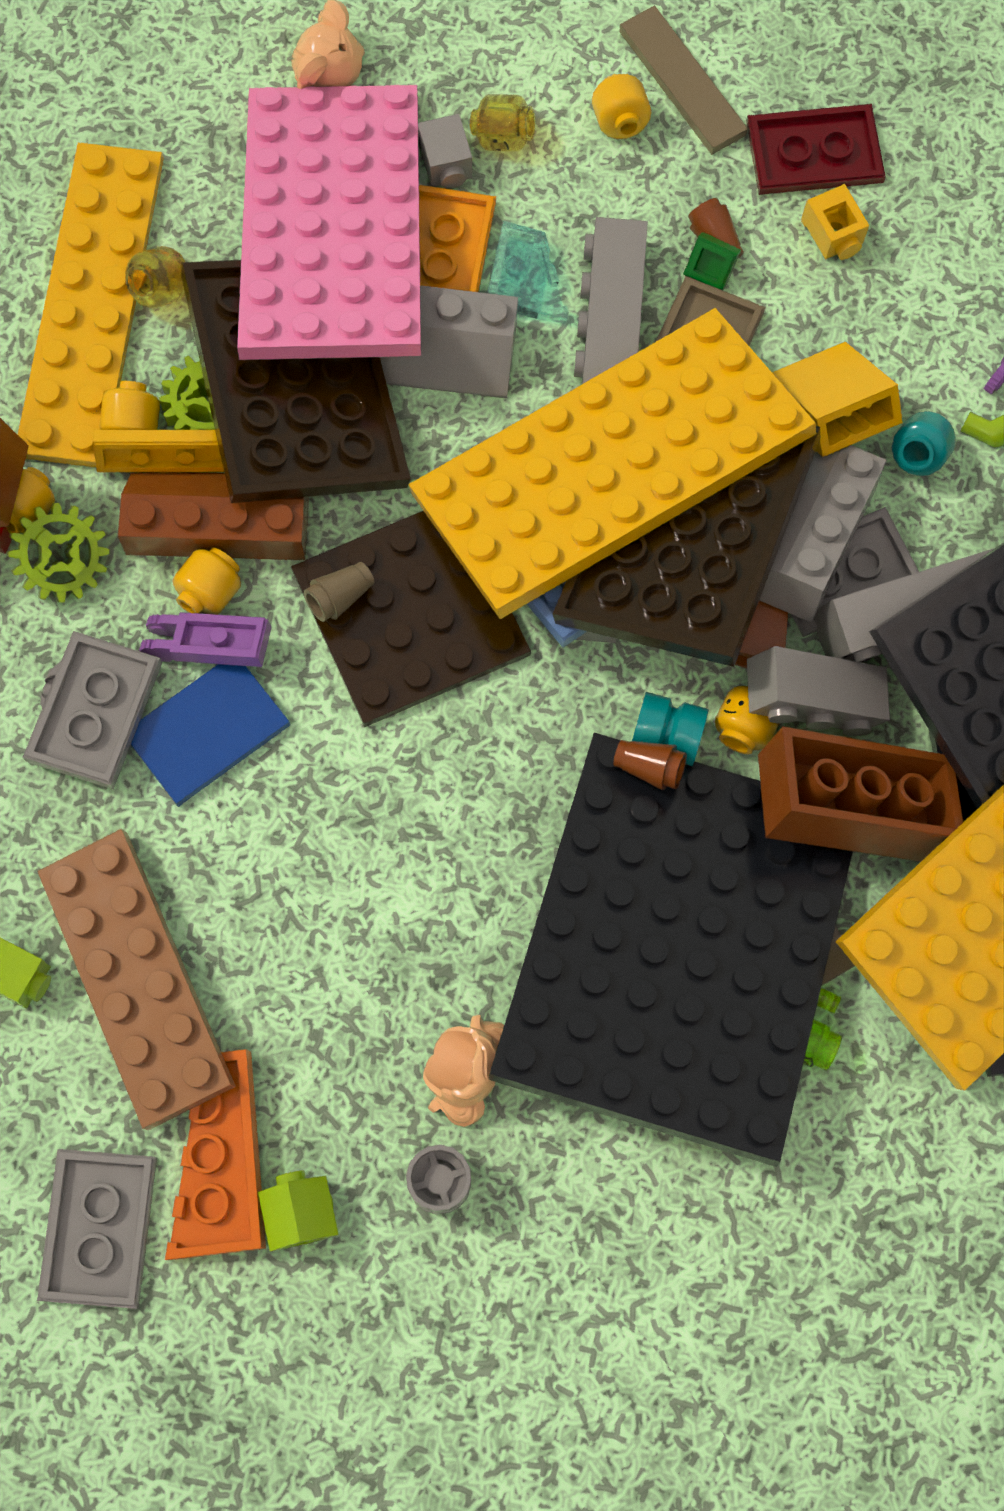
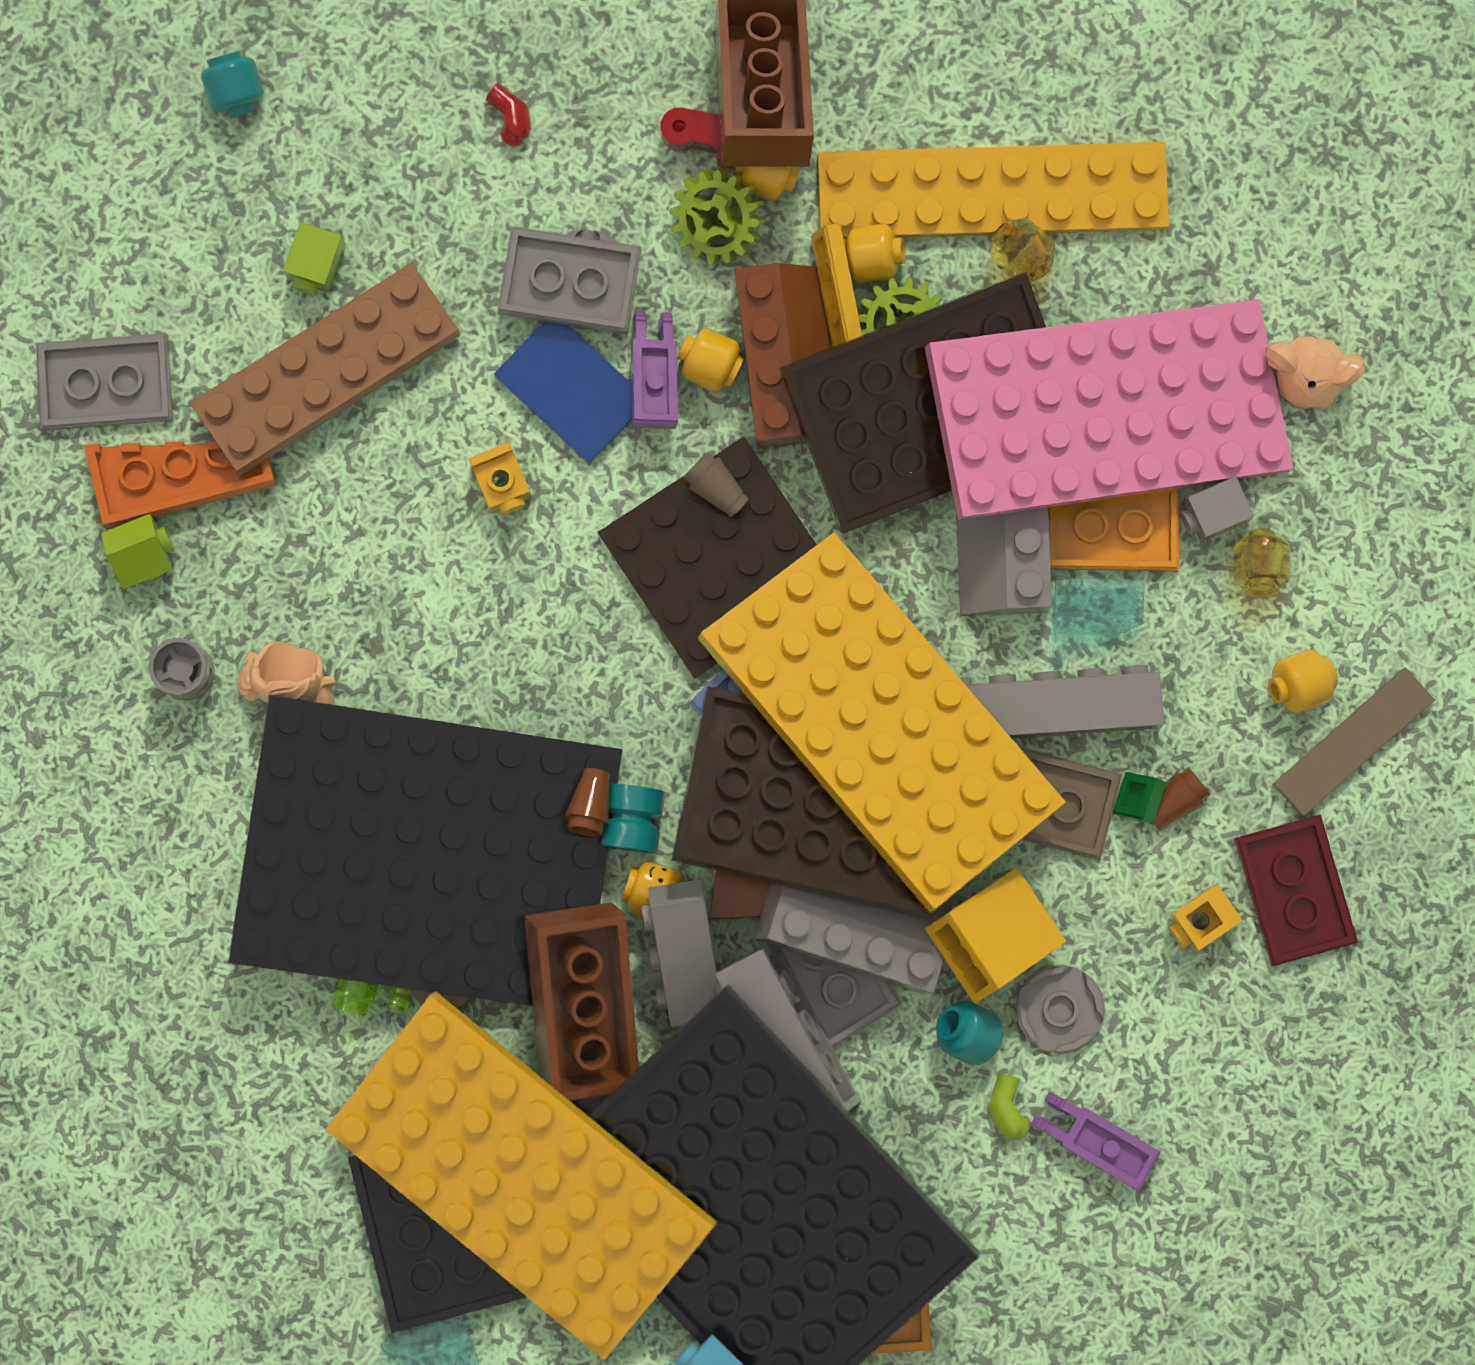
camera: 85 degrees right, 10 degrees up
(282, 826) = (494, 461): none -> yellow brick
(918, 370) = (1043, 1008): none -> light grey tile

